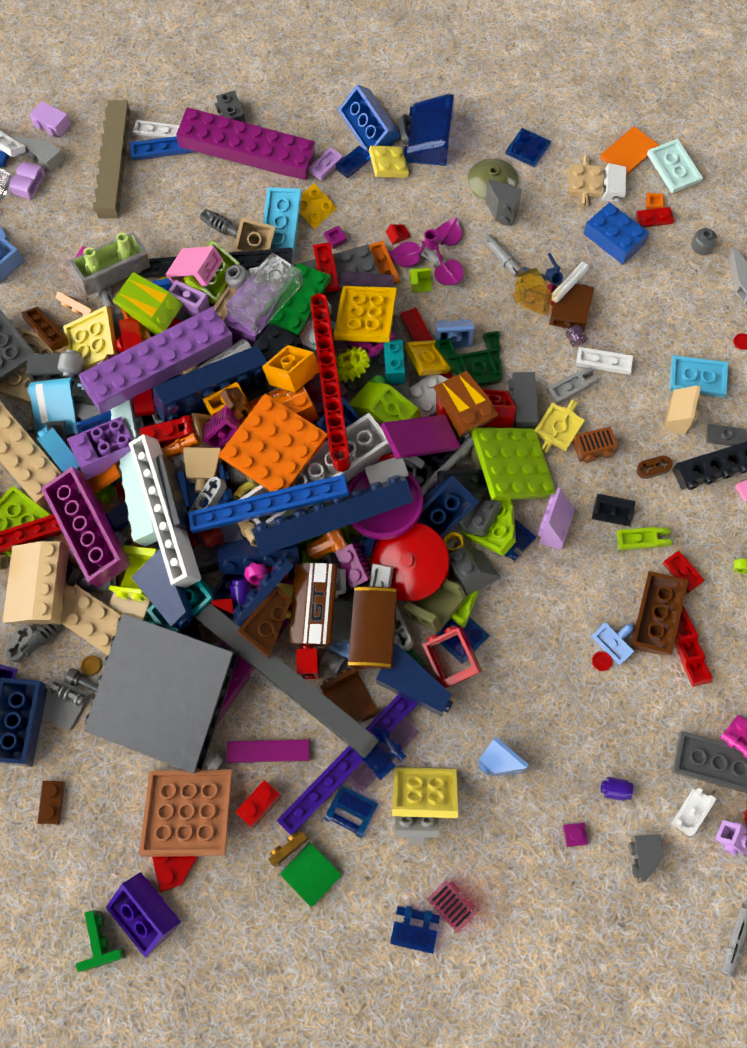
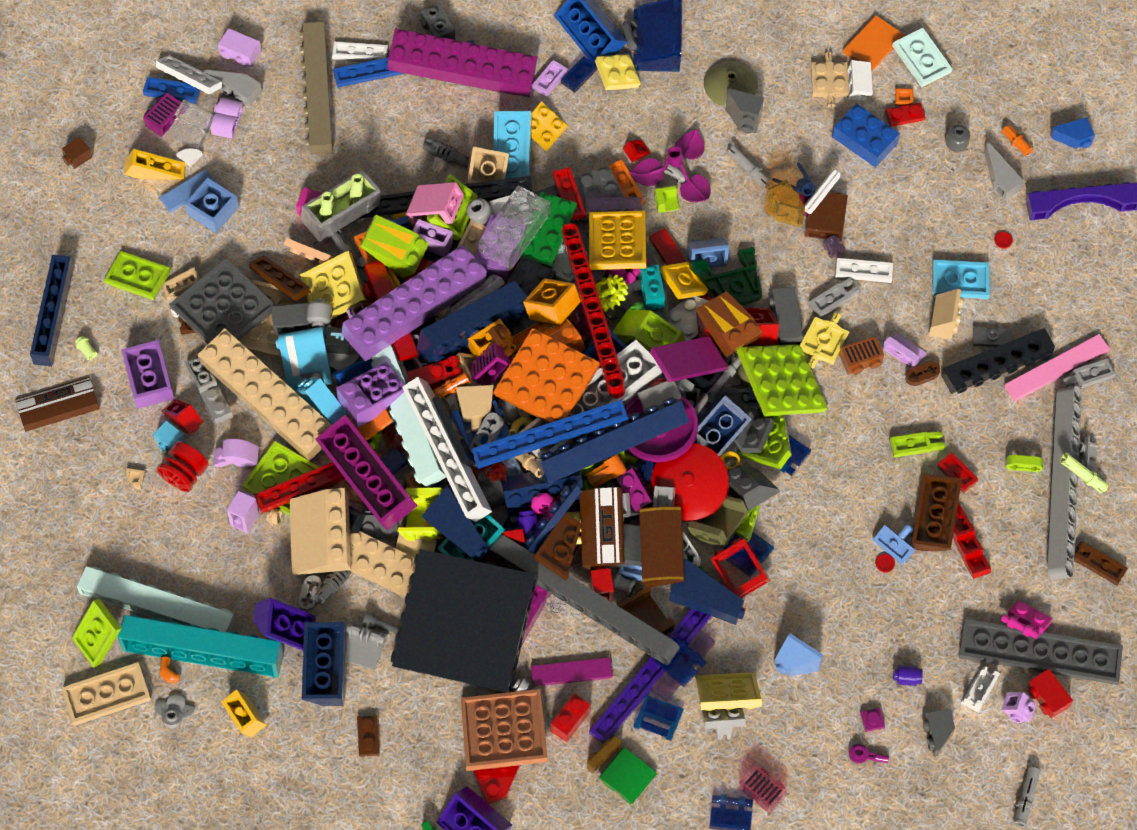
camera: 10 degrees left, 5 degrees down
(90, 665) = (384, 608): pearl gold piece -> none
(335, 237) = (571, 158): magenta plate -> none
(528, 147) = (765, 46): clear blue plate -> none
(556, 520) = (829, 432): lavender slope -> none
(558, 873) = (859, 754): none -> magenta plate
(613, 509) = (884, 418): black hinge -> none
(637, 442) = (904, 350): none -> lavender panel

